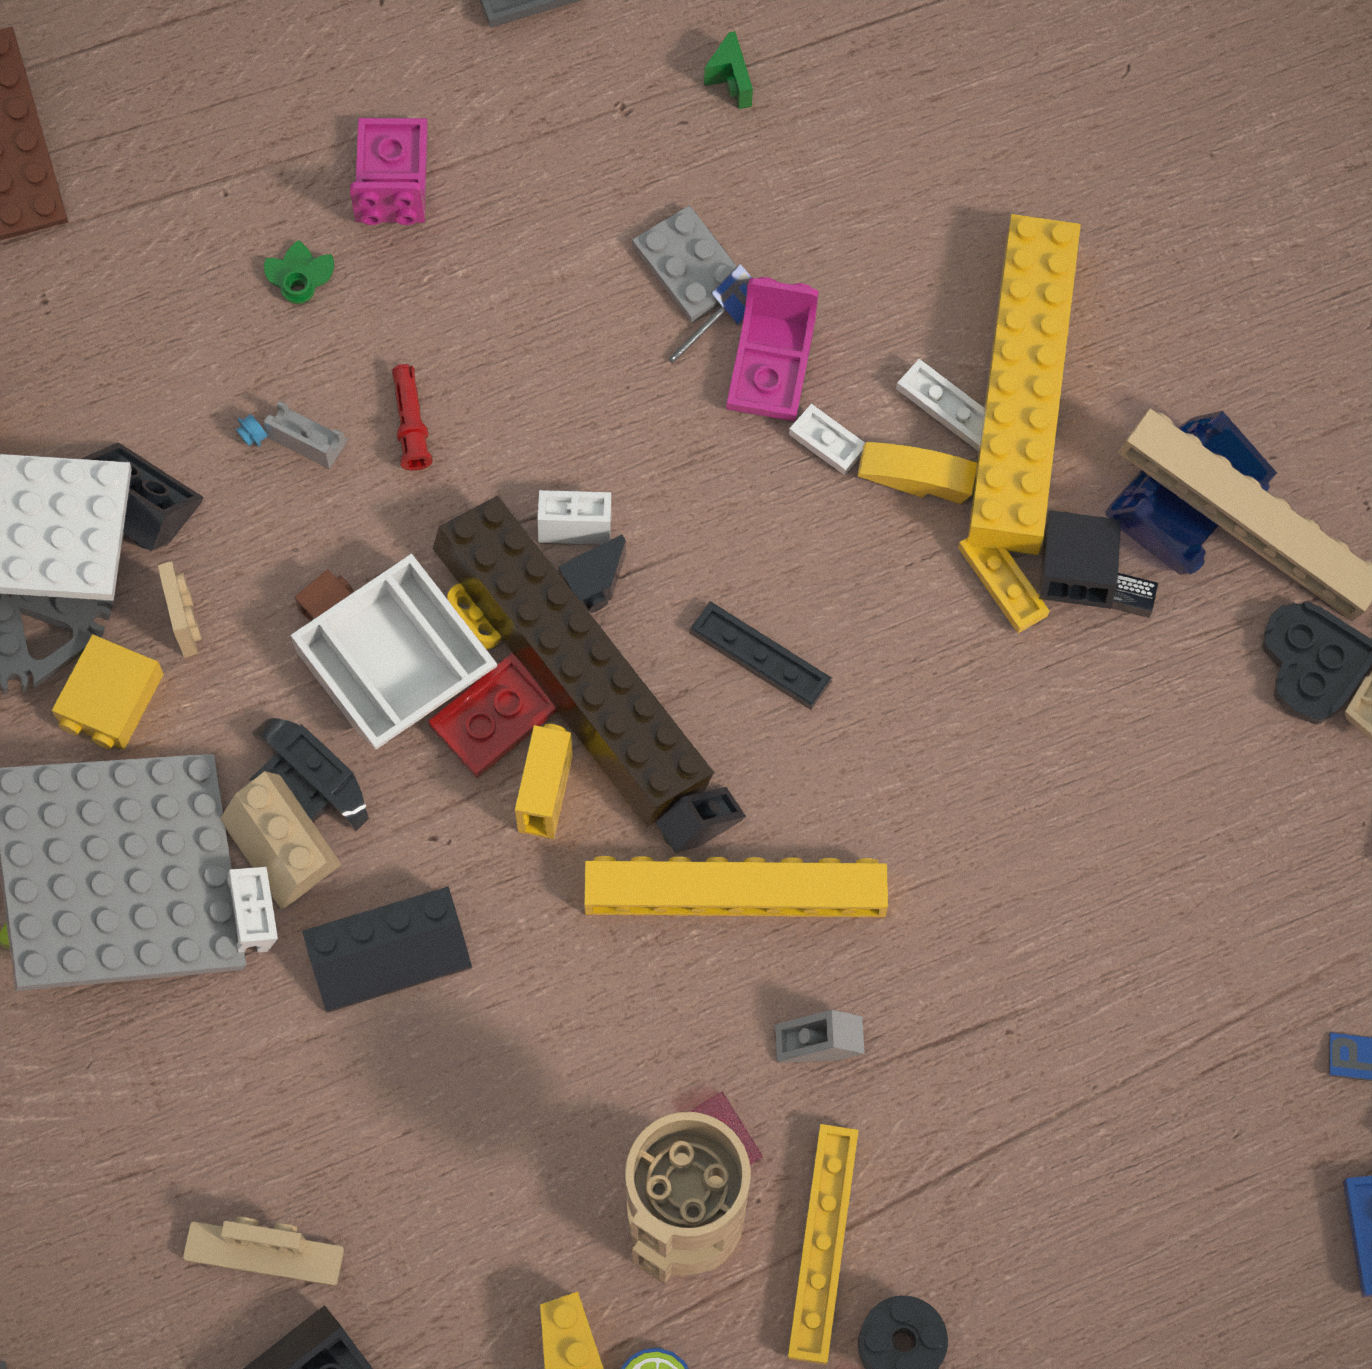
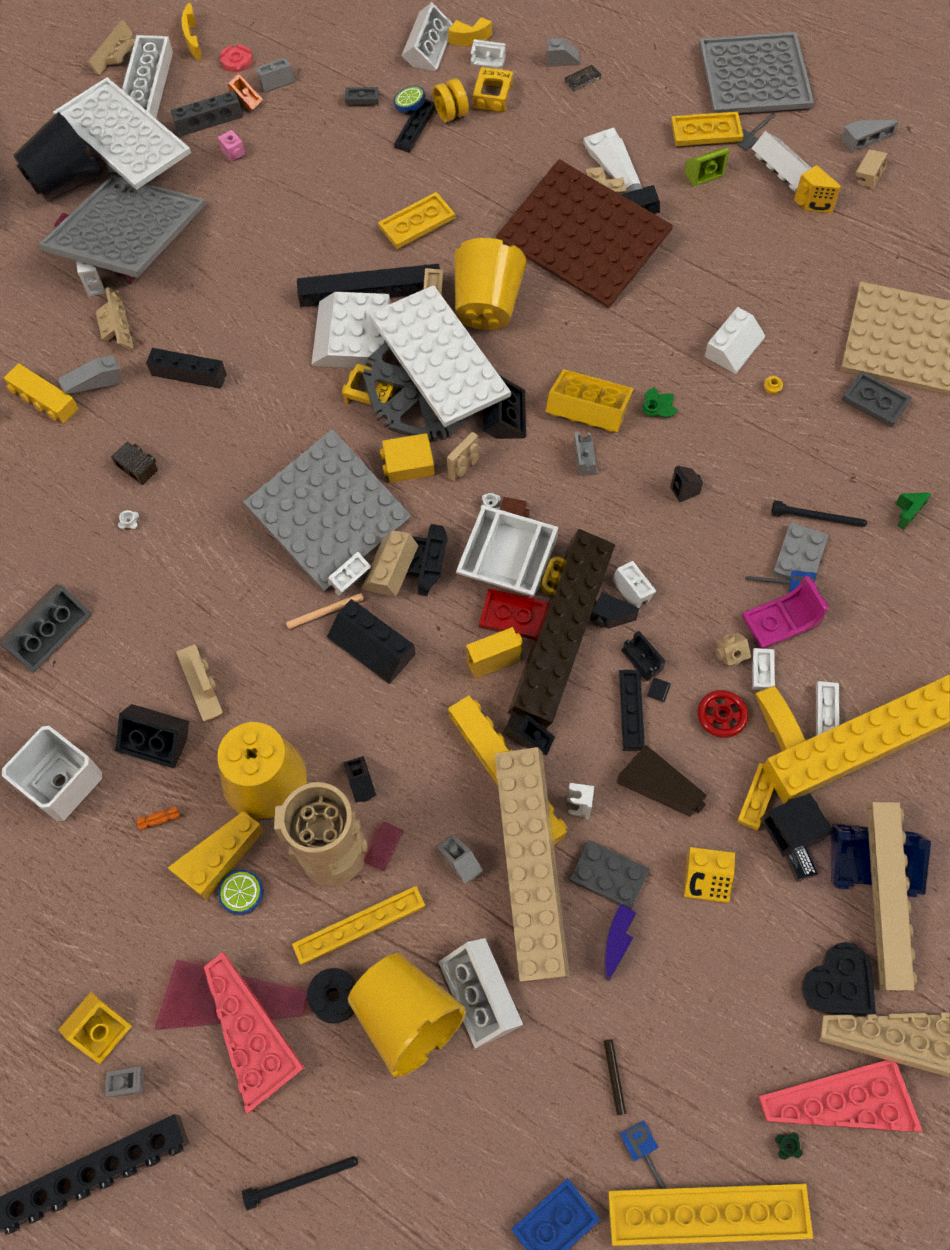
camera: 60 degrees right, 5 degrees down
(216, 362) = (589, 400): none -> yellow slope
(251, 431) = (568, 433): dark azure plate -> none
(278, 614) = (494, 499): none -> white plate
(279, 988) = (322, 611): none -> light nougat bar
(280, 92) = (735, 341): none -> white slope
(390, 171) = (735, 406): dark pink bracket -> none
(393, 104) = (773, 389): none -> yellow plate
(412, 431) = (621, 494): red pin -> none
(467, 331) = (685, 483): none -> black slope
(500, 1275) = (259, 782): none -> yellow cone
(600, 237) = (779, 508): none -> black piece
(600, 1103) = (359, 779): none -> black slope
(693, 581) = (643, 656): none -> black hinge
(755, 597) = (659, 689): none -> black piece
(772, 455) = (733, 649): none -> tan brick
(849, 567) = (730, 699): none -> red plate
(858, 808) = (582, 796): none -> white hinge
(898, 688) = (661, 782): none -> dark brown slope
(905, 940) = (531, 866): none -> tan brick
(978, 851) = (609, 874): none -> dark grey plate
(1000, 1250) = (404, 1013): none -> yellow cone
(1030, 1134) = (482, 991): none -> white slope
(1069, 720) = (709, 875): none -> yellow slope
(1079, 902) = (617, 939): none -> dark purple slope
(1253, 1031) = (614, 1077): none -> dark brown bar

